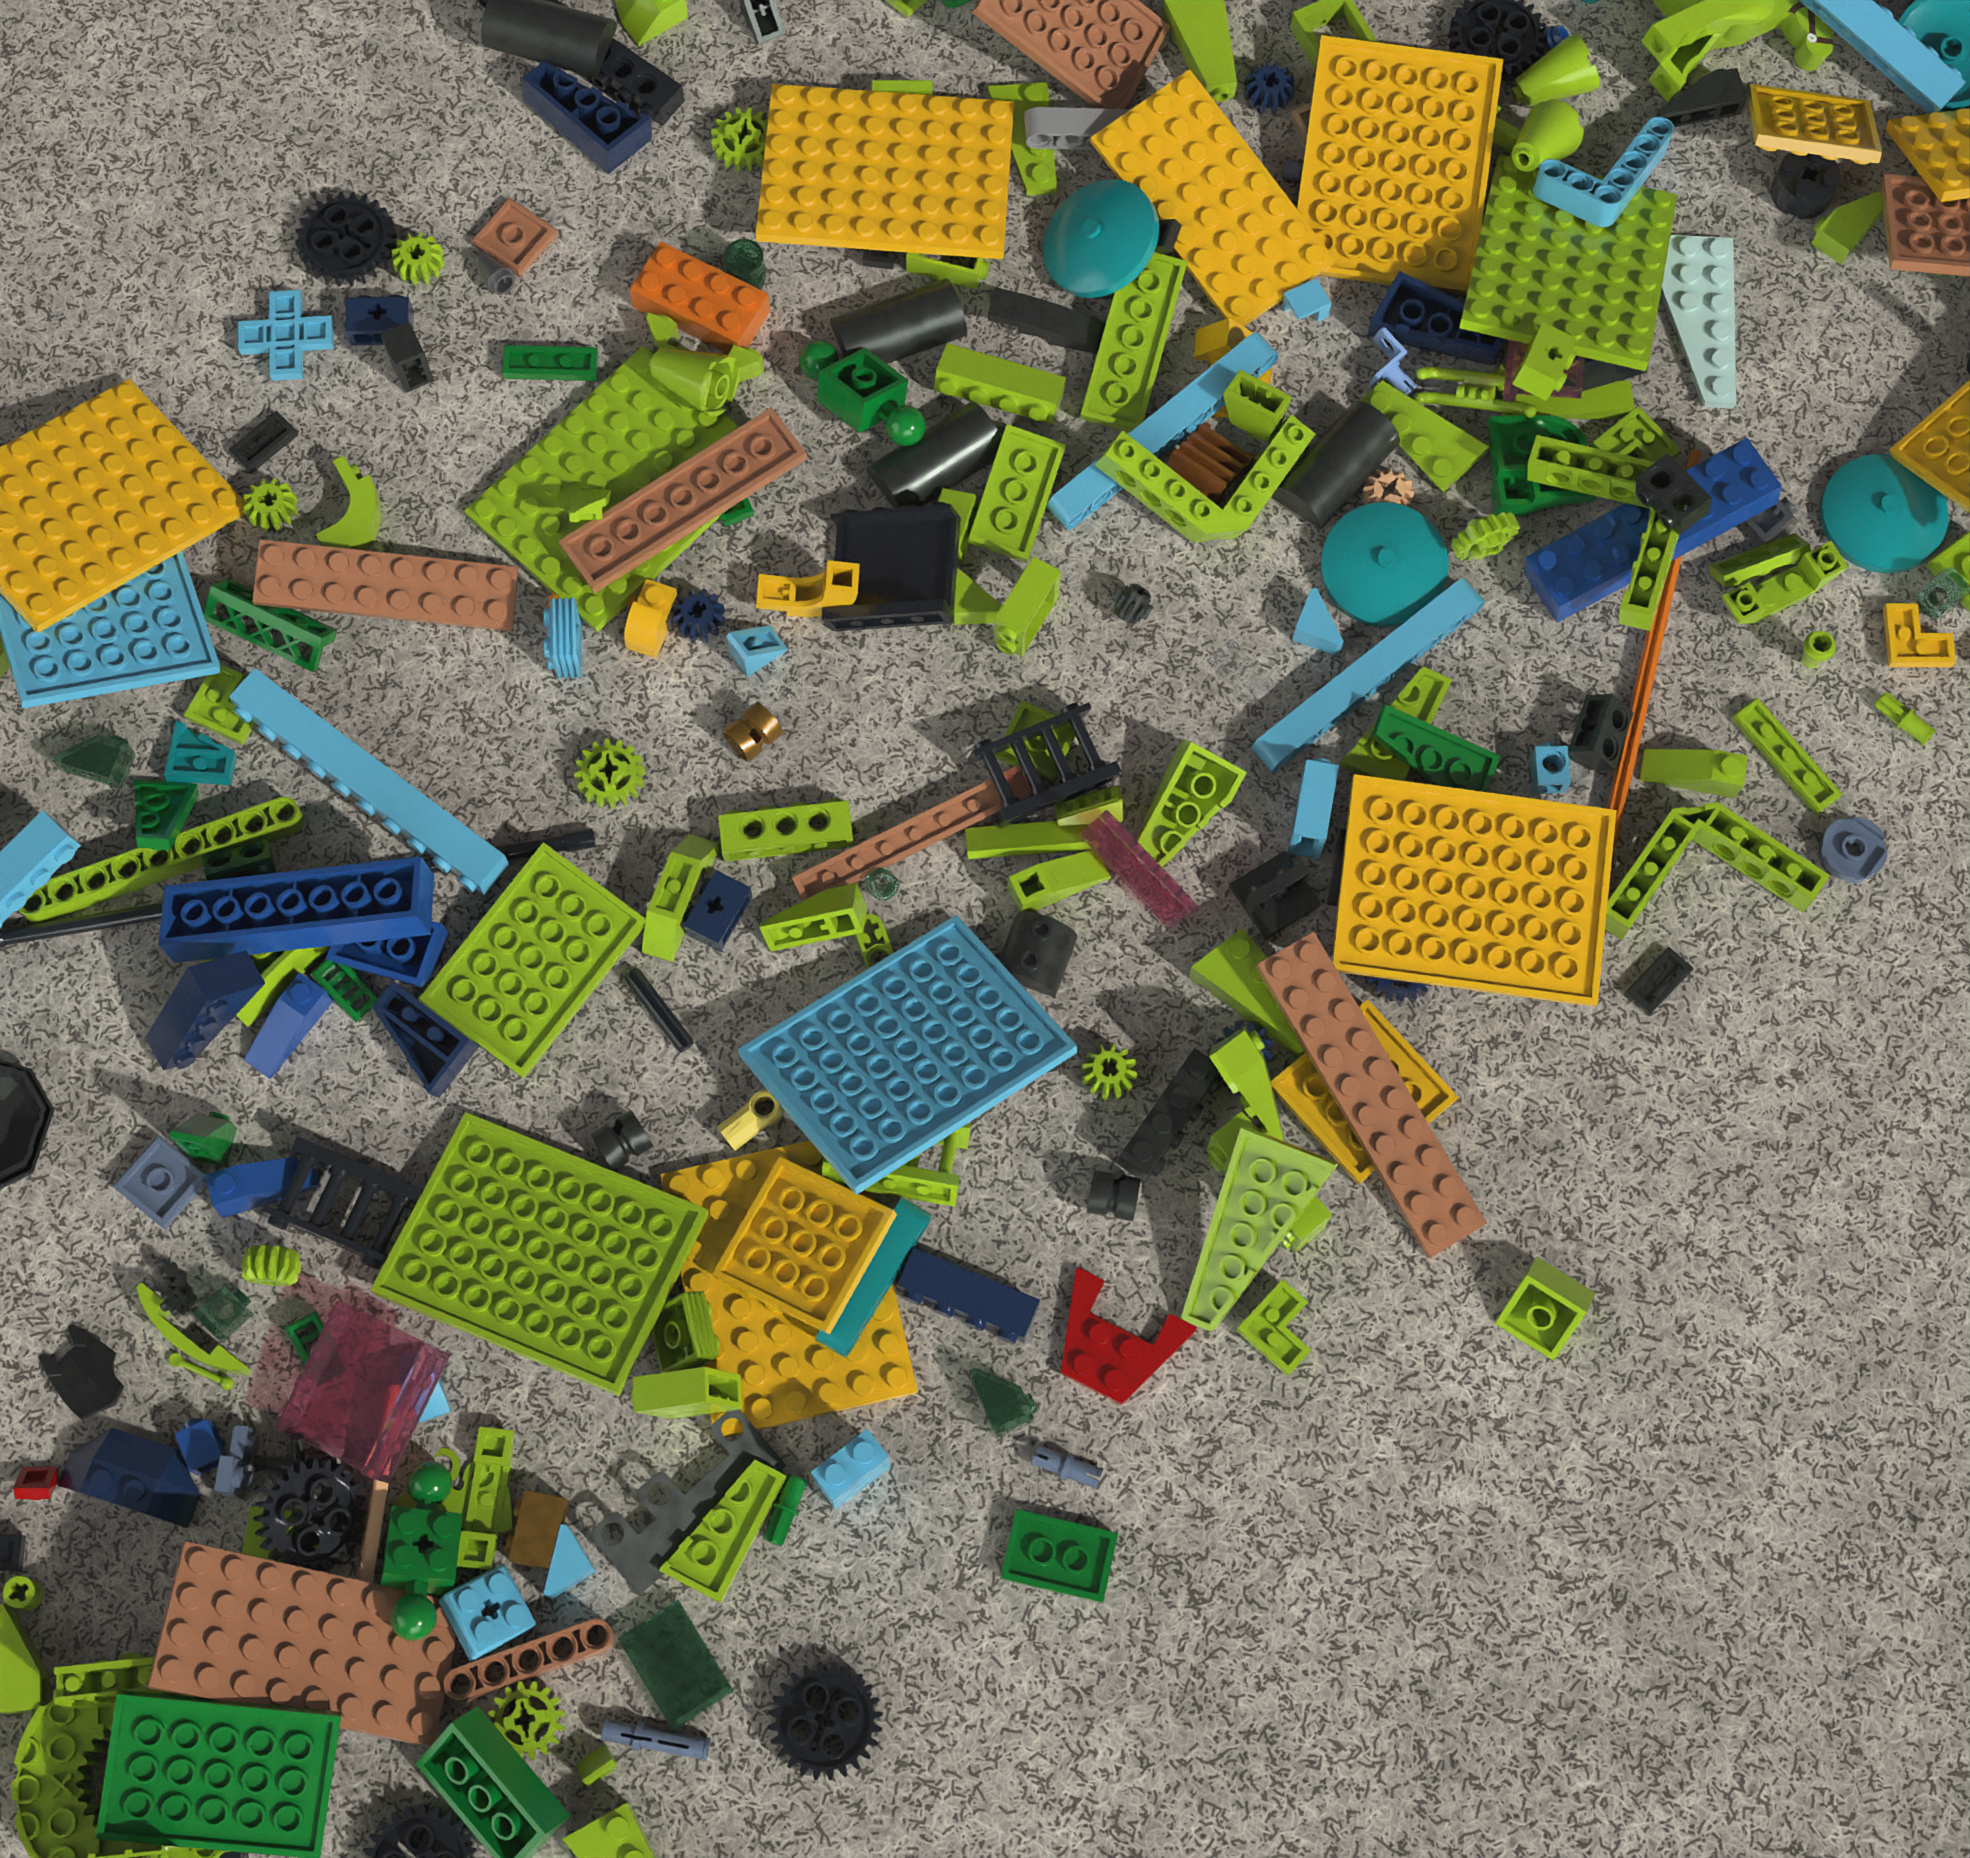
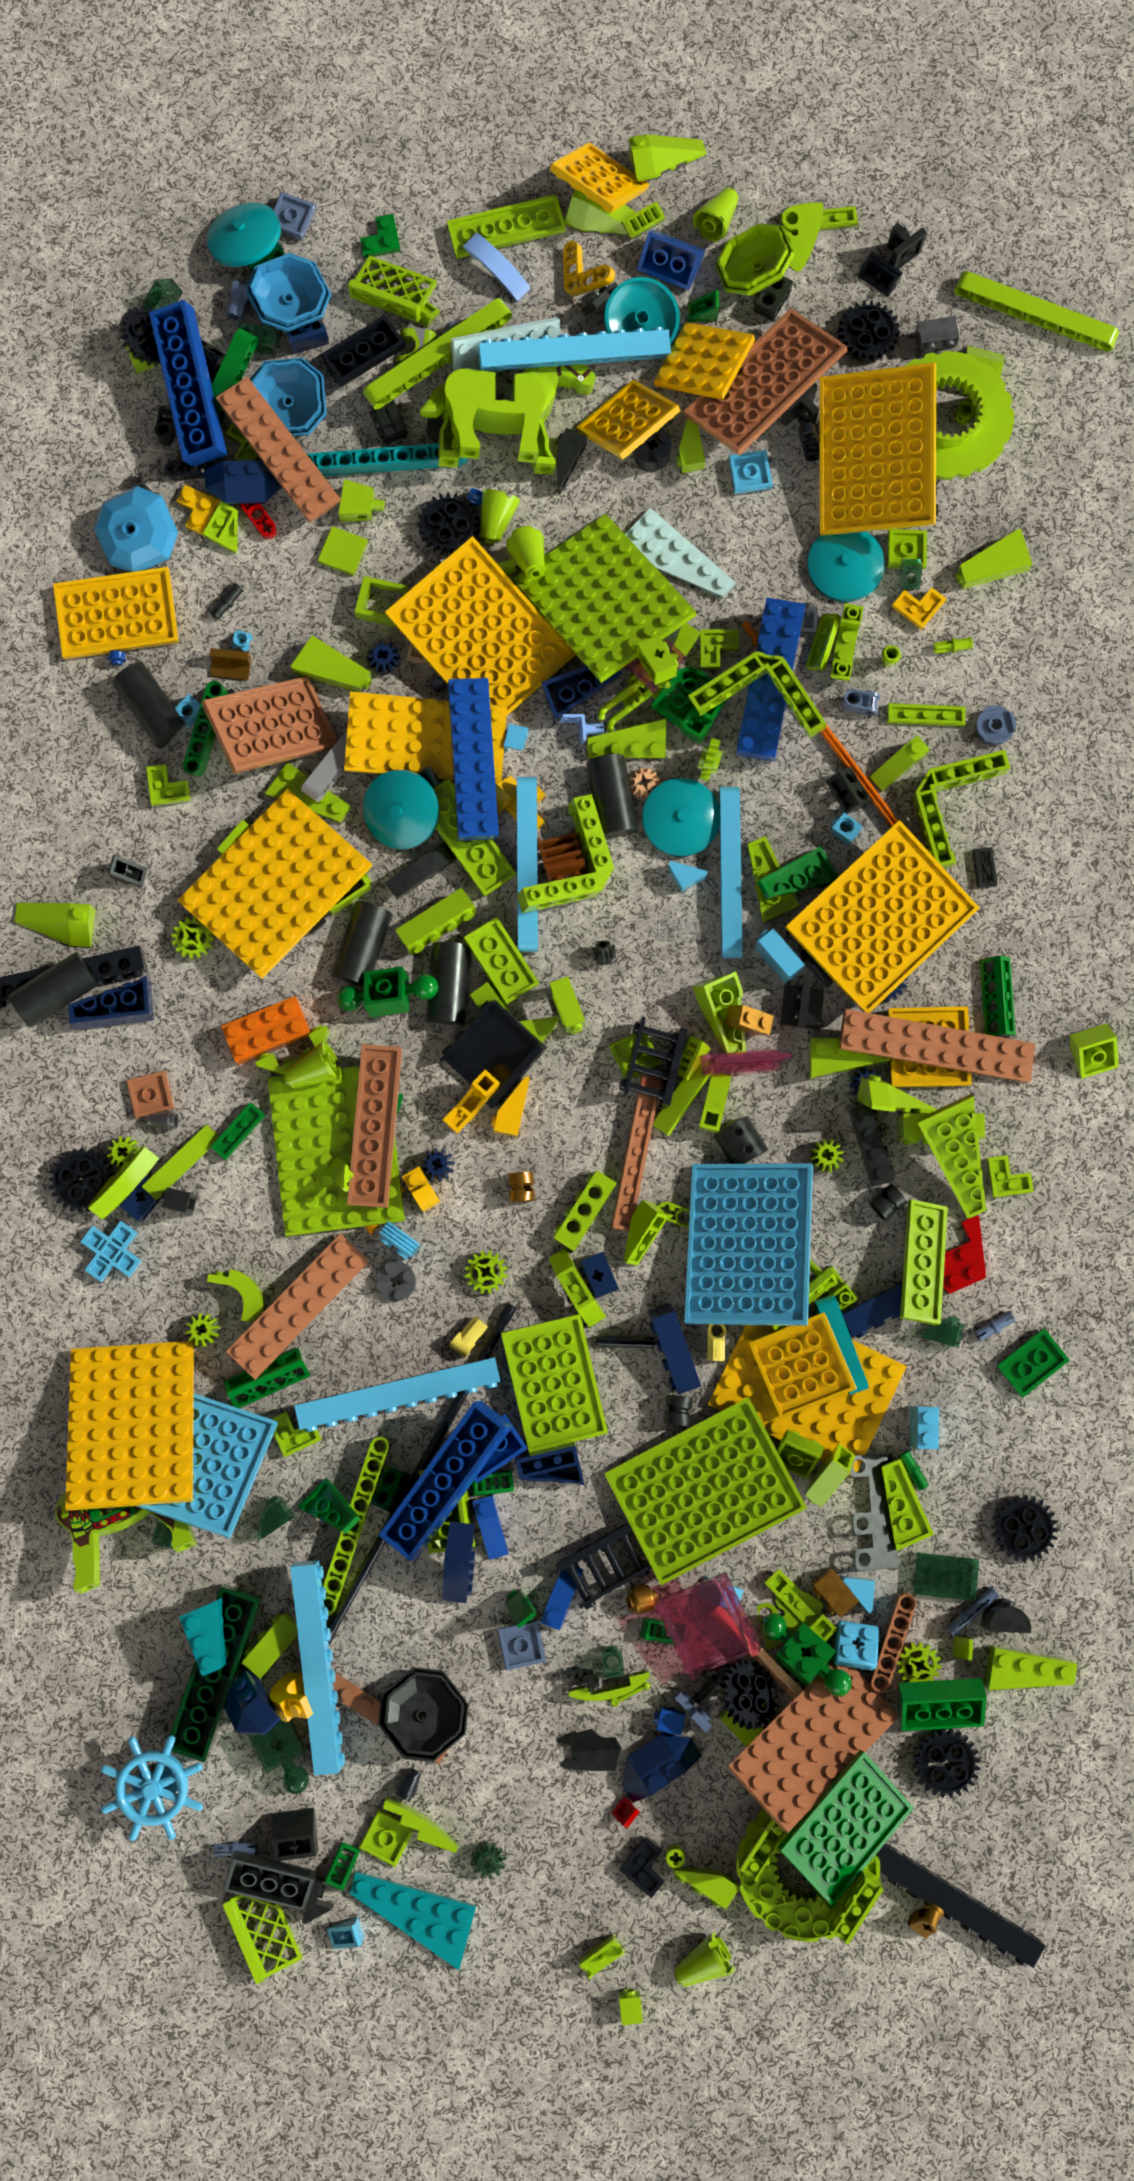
camera: 50 degrees left, 10 degrees up
(198, 759) = (313, 1466): teal wing -> none
(270, 450) = (168, 1289): pearl dark grey tile -> none
(271, 1265) = (608, 1623): lime gear -> none
(335, 1283) = (641, 1599): none -> pearl gold head
(377, 279) = (123, 1183): none -> lime slope
(458, 326) = (180, 1162): none -> lime piece
(503, 815) = (466, 1340): none -> light yellow piece
(527, 689) = (389, 1271): none -> dark grey plate
(680, 1787) = (1005, 1618): none -> pearl dark grey brick
(695, 1072) = (674, 1349): none -> dark blue wedge
(746, 262) = (267, 993): clear green wheel -> none
(754, 647) = (477, 1150): medium azure slope -> none
(838, 649) = (510, 1113): none -> yellow slope
(890, 888) = (652, 1190): clear green bush -> none
(946, 1226) = (841, 1291): none -> lime slope
(1070, 1299) = (924, 1262): none -> lime plate
(1198, 835) = (749, 1020): none -> pearl gold brick
(1232, 264) = (472, 759): none -> blue brick
(1255, 405) = (556, 810): lime torso -> none
(1511, 1131) = (1003, 995): none -> green fence
(1604, 200) = (579, 559): medium azure beam -> none
(1679, 490) = (778, 656): pearl dark grey brick -> none
(1731, 668) = (864, 702): none -> sand blue piece
(1888, 315) = (750, 472): none -> medium azure plate

